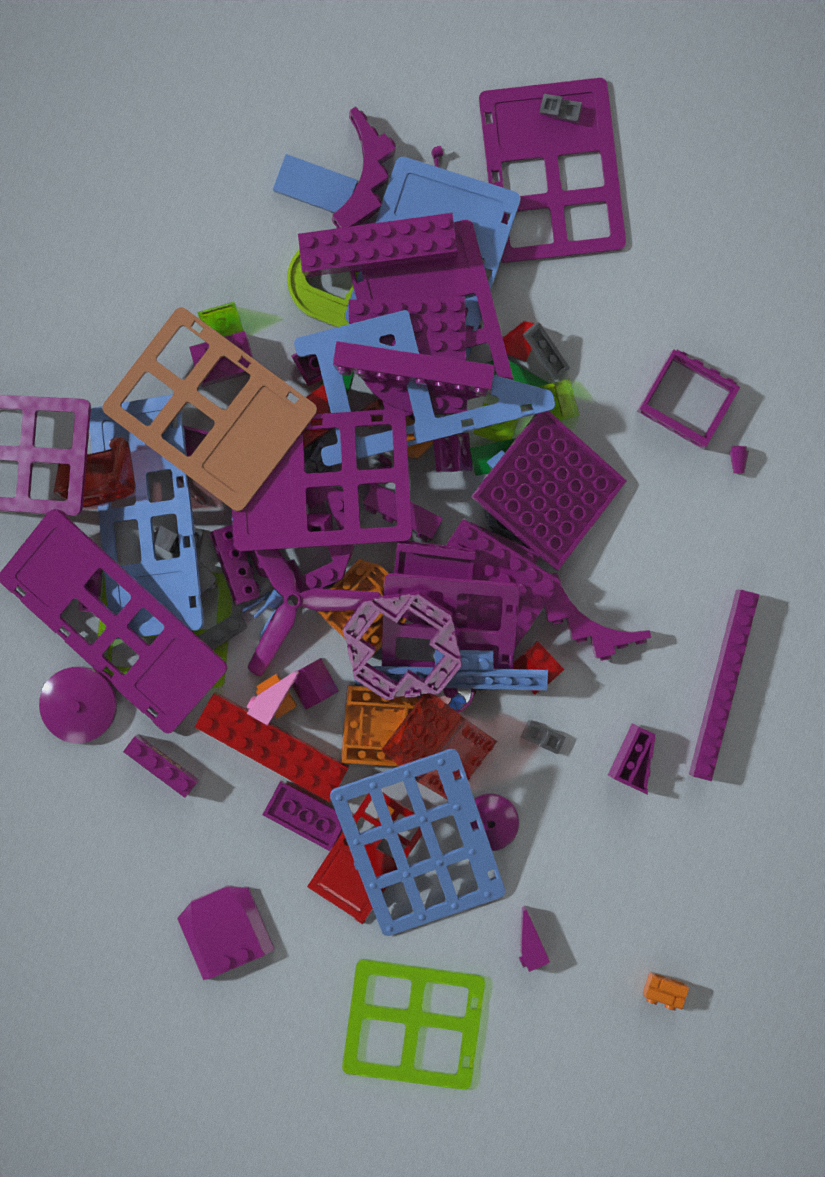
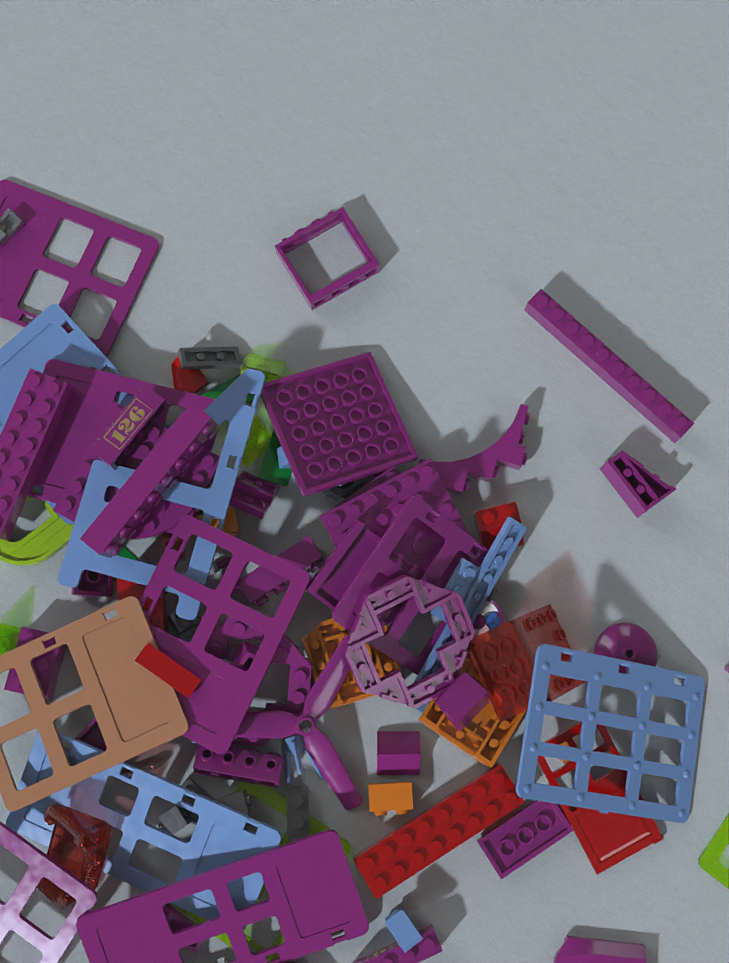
camera: 60 degrees left, 10 degrees down
(184, 759) = (403, 928): none -> medium blue slope
(268, 702) = (393, 810): bright pink slope -> none
(274, 469) = (168, 670): none -> red tile
(380, 712) = (462, 700): none -> magenta slope
(448, 323) = (129, 427): none -> magenta brick
(543, 737) = (568, 558): flat silver slope -> none
(739, 458) = (406, 243): magenta cone -> none

